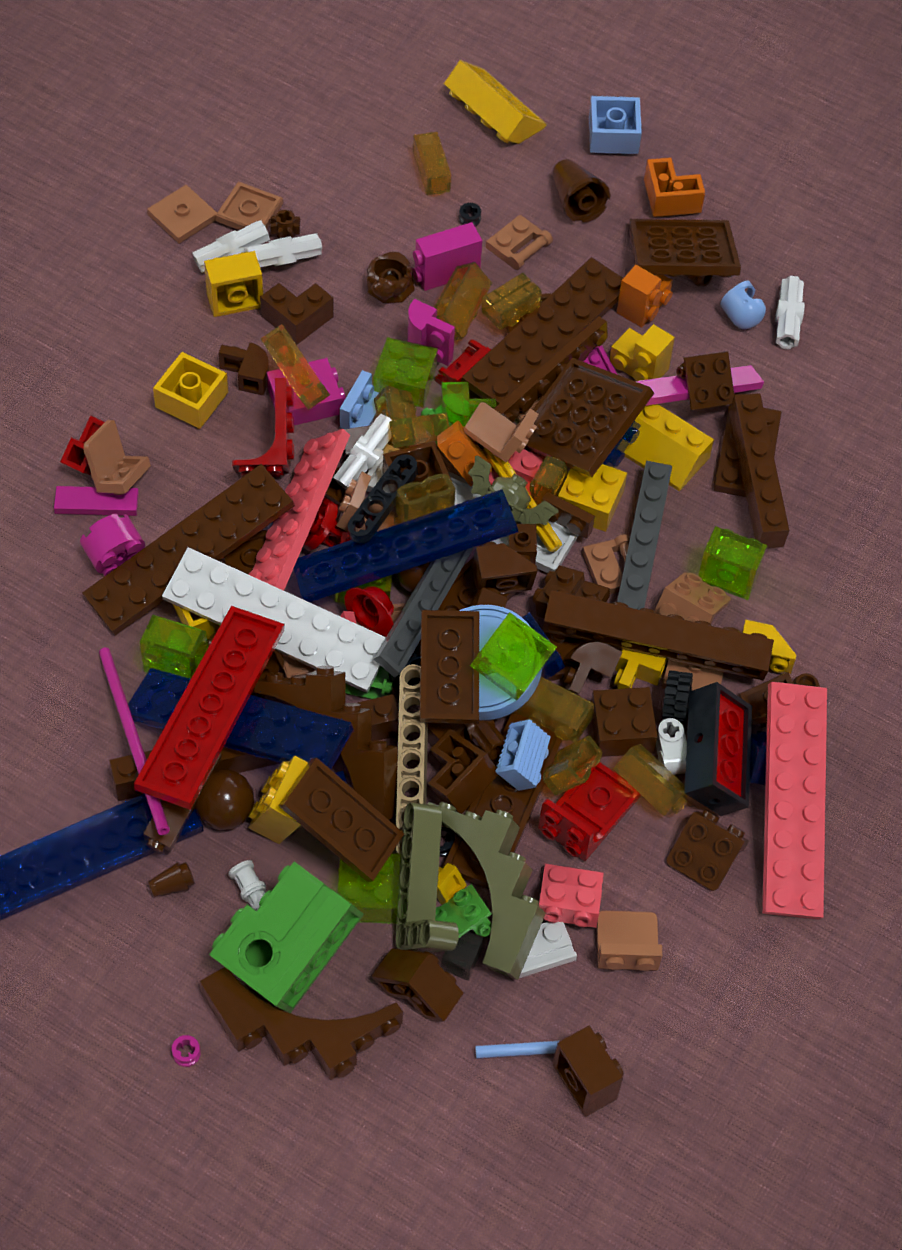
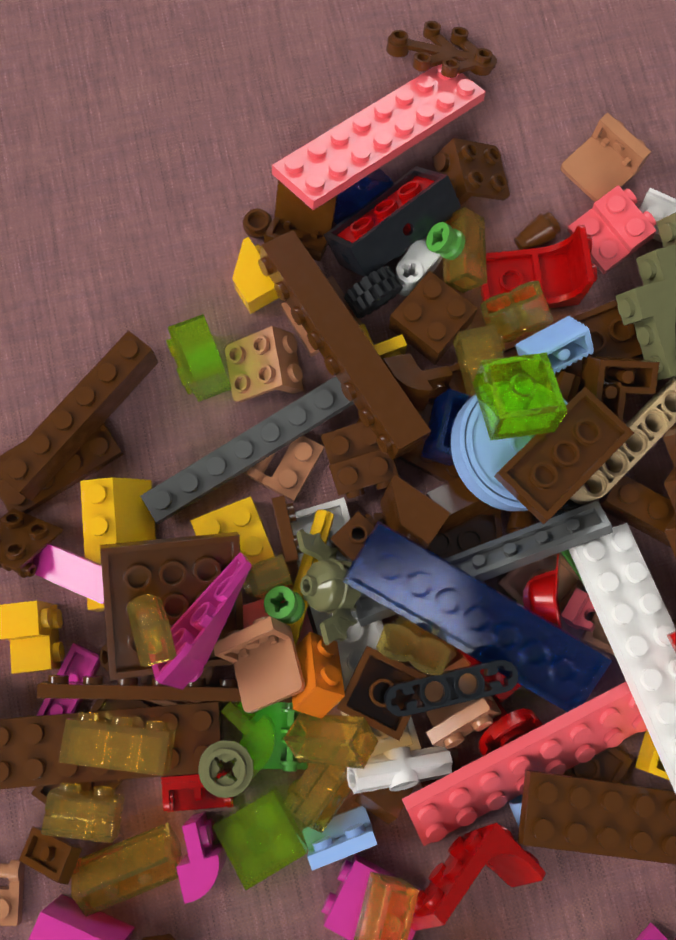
camera: 130 degrees left, 20 degrees up
(471, 369) = (226, 785): none -> olive gear
(500, 272) = (50, 855): none -> reddish brown plate
(522, 465) = (286, 612): none -> bright green wheel
(530, 335) = (117, 744): none -> clear yellow brick
(551, 399) = (201, 625): none -> dark pink wedge
(577, 378) = (151, 630): none -> clear yellow brick
(618, 849) = (538, 232): none -> reddish brown cone
(668, 760) = (445, 241): none -> bright green wheel
(826, 918) = (428, 55): none -> reddish brown plant

